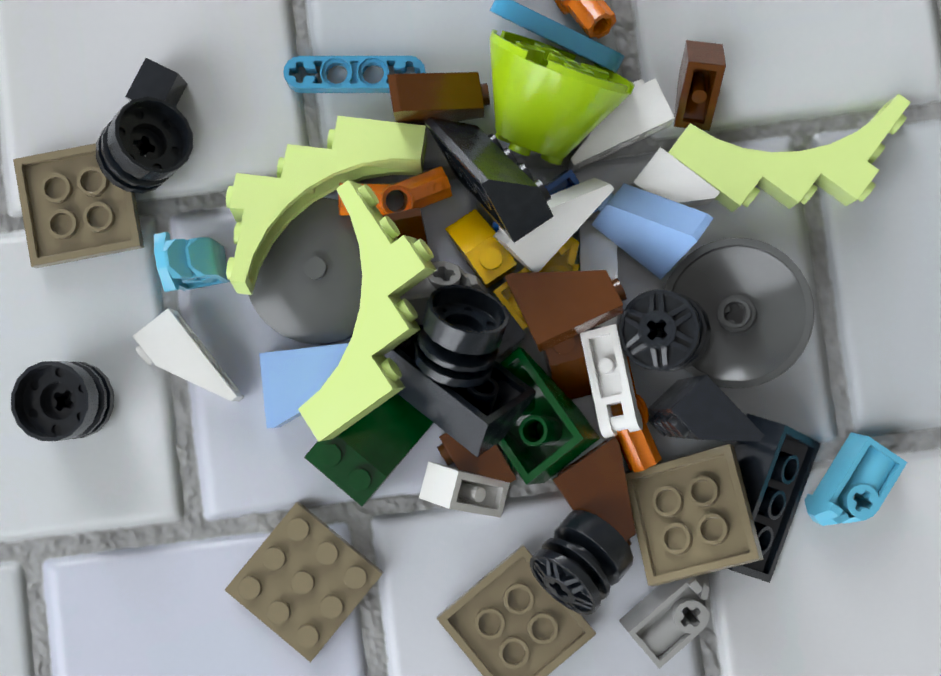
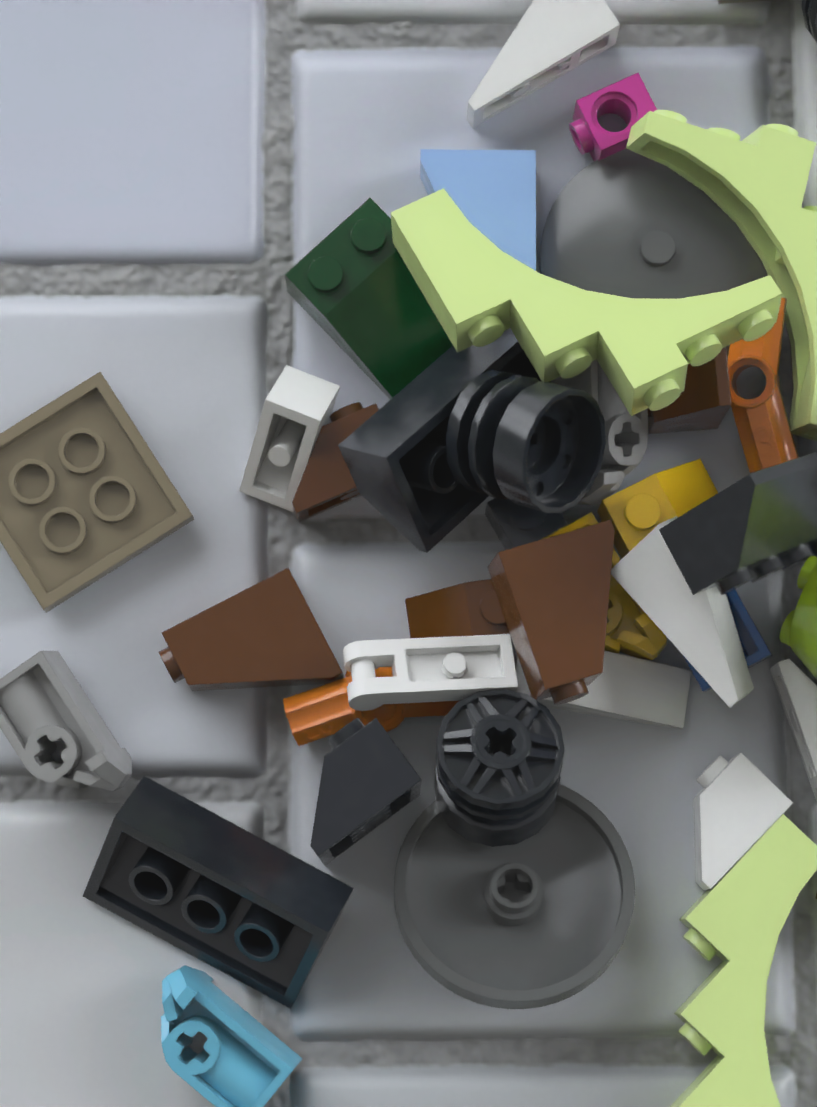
camera: 90 degrees right, 5 degrees down
(189, 262) = (685, 58): medium azure piece -> none
(216, 299) = (624, 98): none -> dark pink brick
(304, 581) = (182, 186): dark tan plate -> none
(550, 428) = (367, 572): dark green slope -> none
(582, 561) = (158, 592): black wheel -> none
(650, 227) = (666, 768): light blue slope -> none
(692, 516) = (205, 772): dark tan plate -> none

